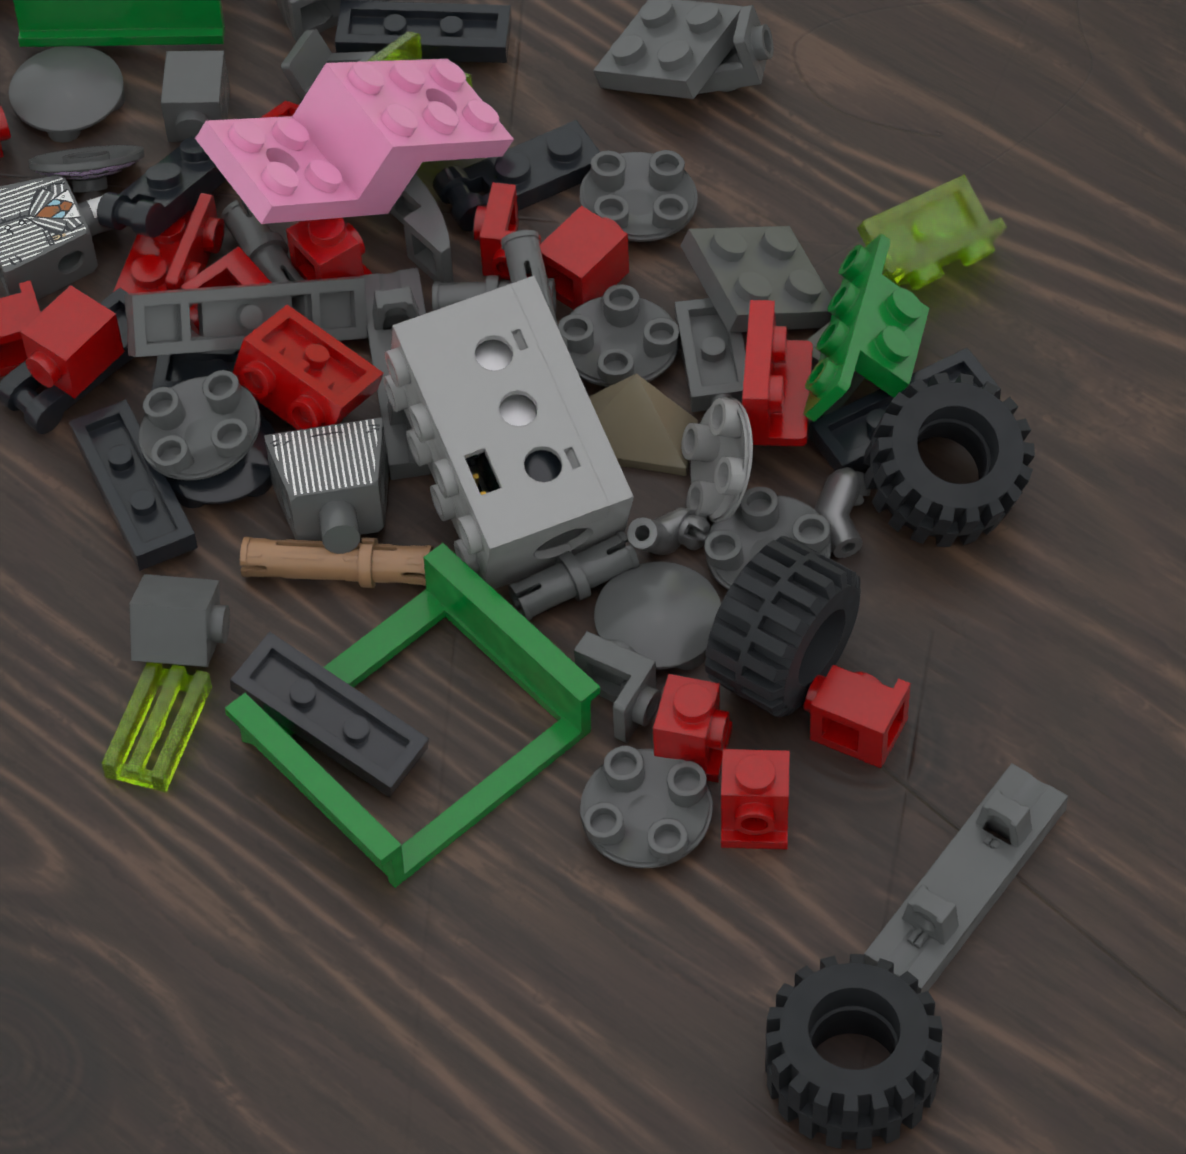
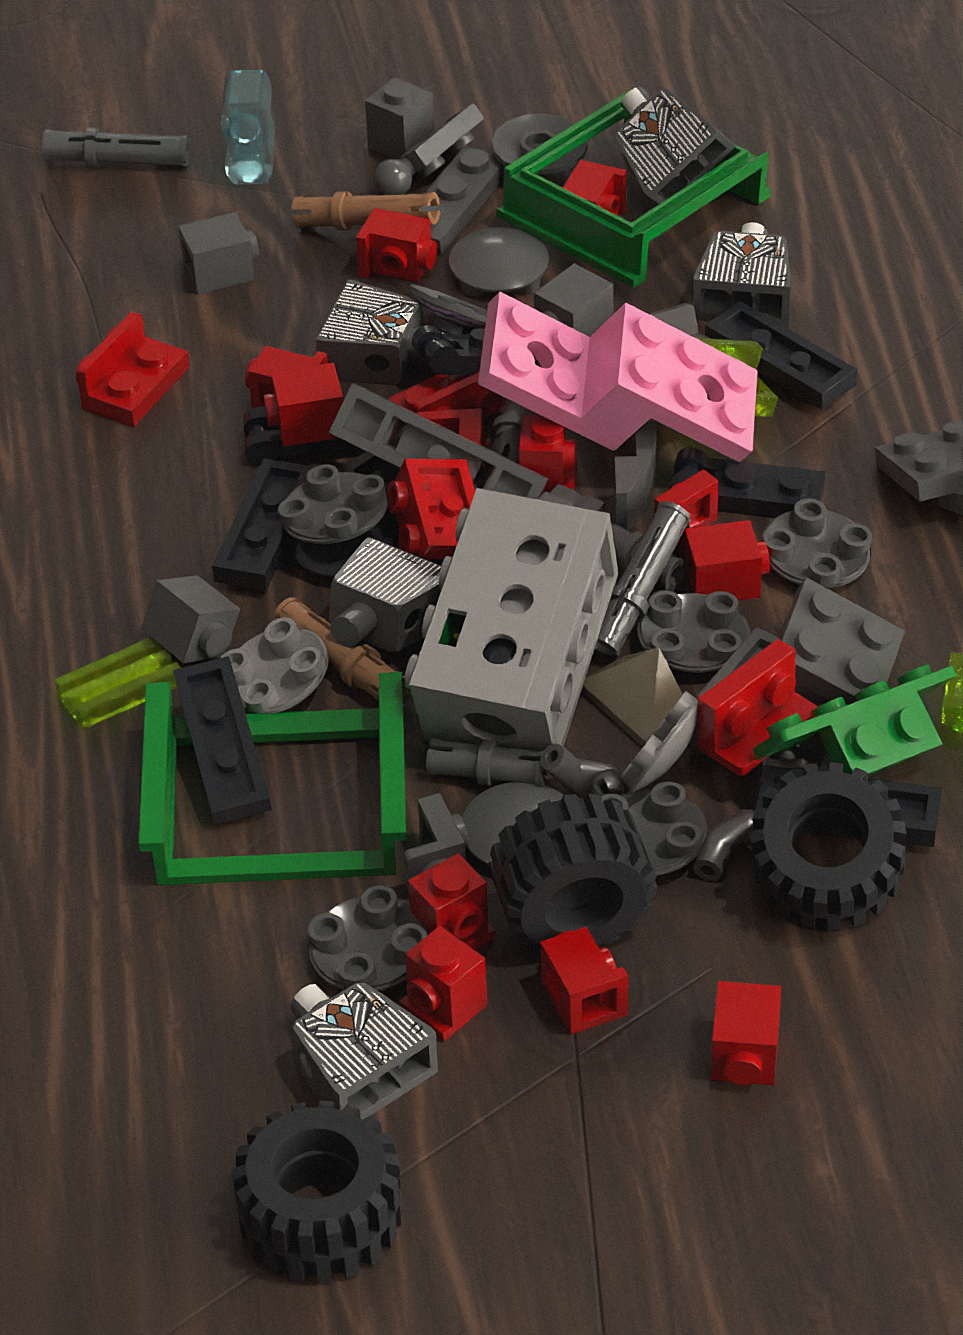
camera: 40 degrees right, 10 degrees down
(299, 603) = (278, 667): none -> light grey dish
(742, 908) = (360, 1047): none -> dark grey torso
(968, 877) = (541, 1146): dark grey hinge -> none
(1033, 667) = (746, 1033): none -> red brick

